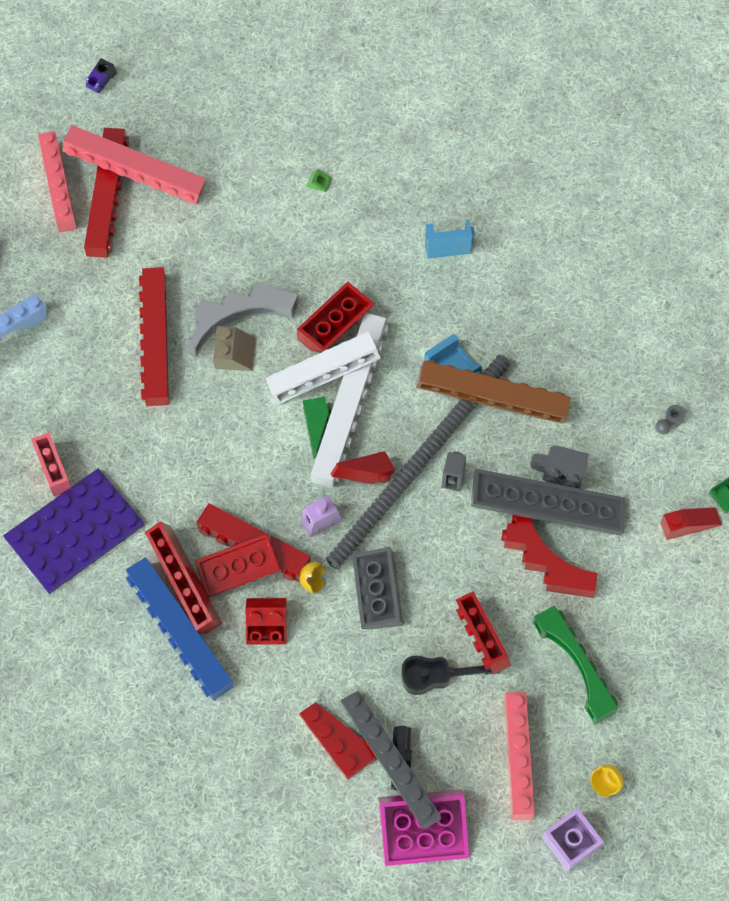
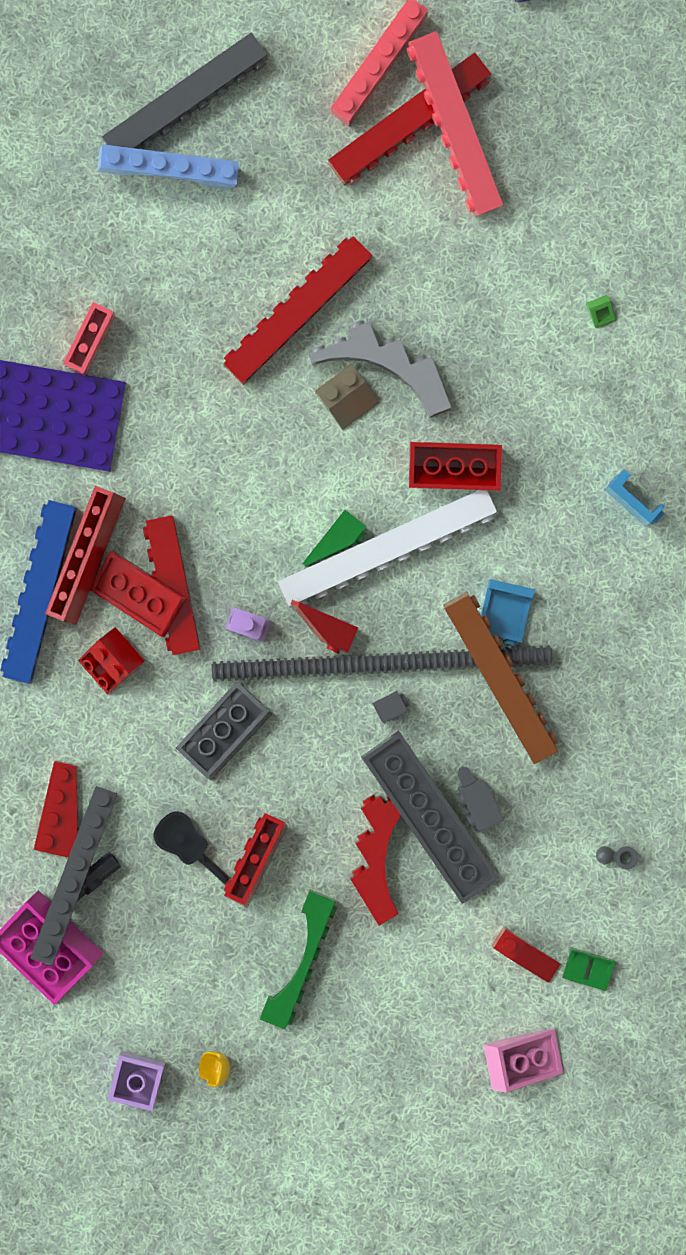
camera: 50 degrees right, 25 degrees up
(310, 577) = (182, 666): yellow hair -> none
(323, 368) = (391, 500): white brick -> none
(518, 756) = (173, 977): coral brick -> none

